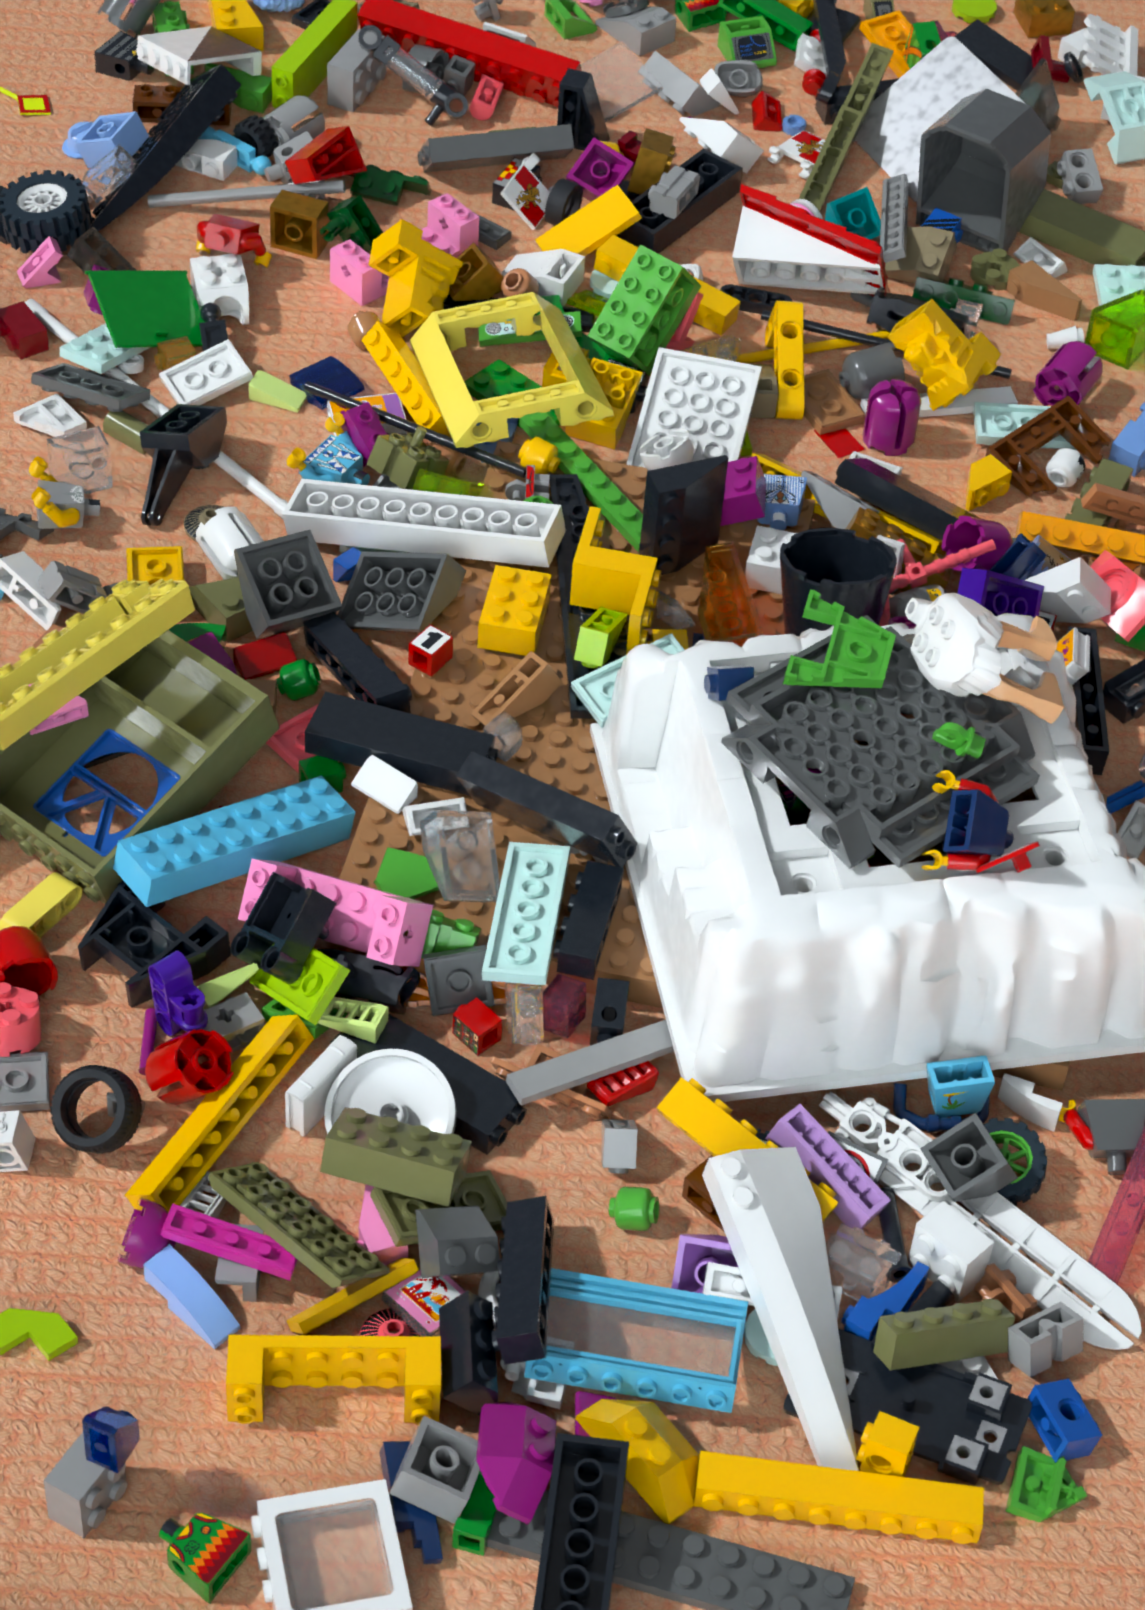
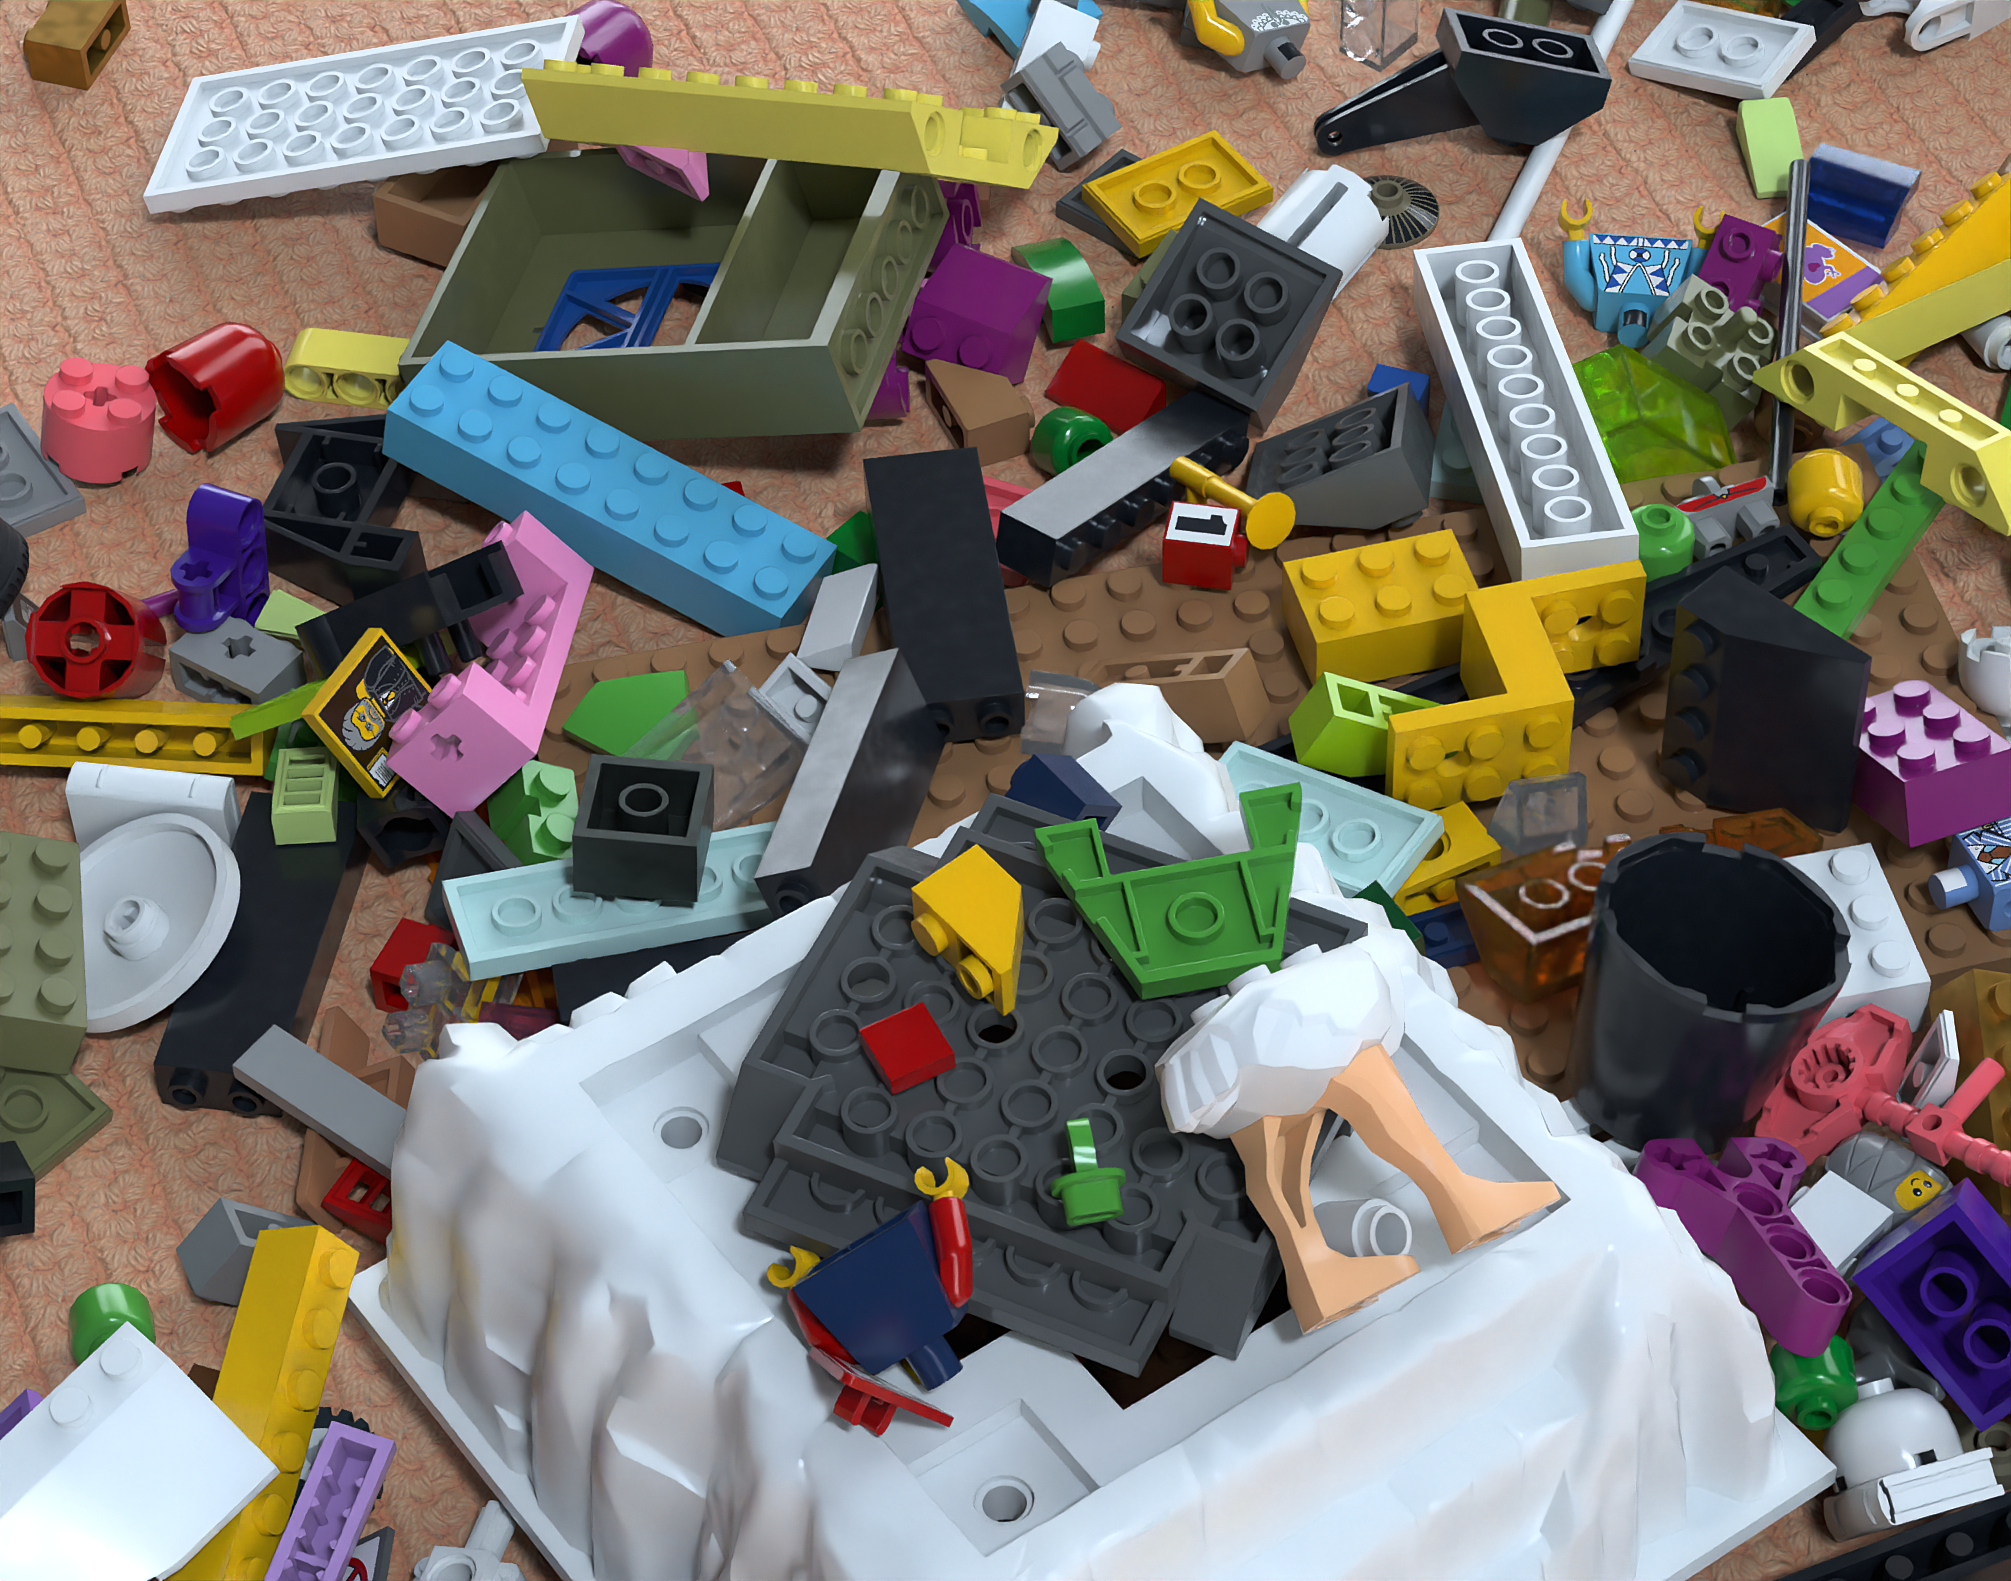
camera: 70 degrees right, 0 degrees up
(354, 958) = (362, 705): none -> tile
(385, 636) = (1266, 519): none -> yellow piece
(511, 882) = (643, 828): none -> pearl dark grey brick
(824, 714) = (975, 922): none -> yellow slope
(865, 766) = (907, 1048): none -> red tile

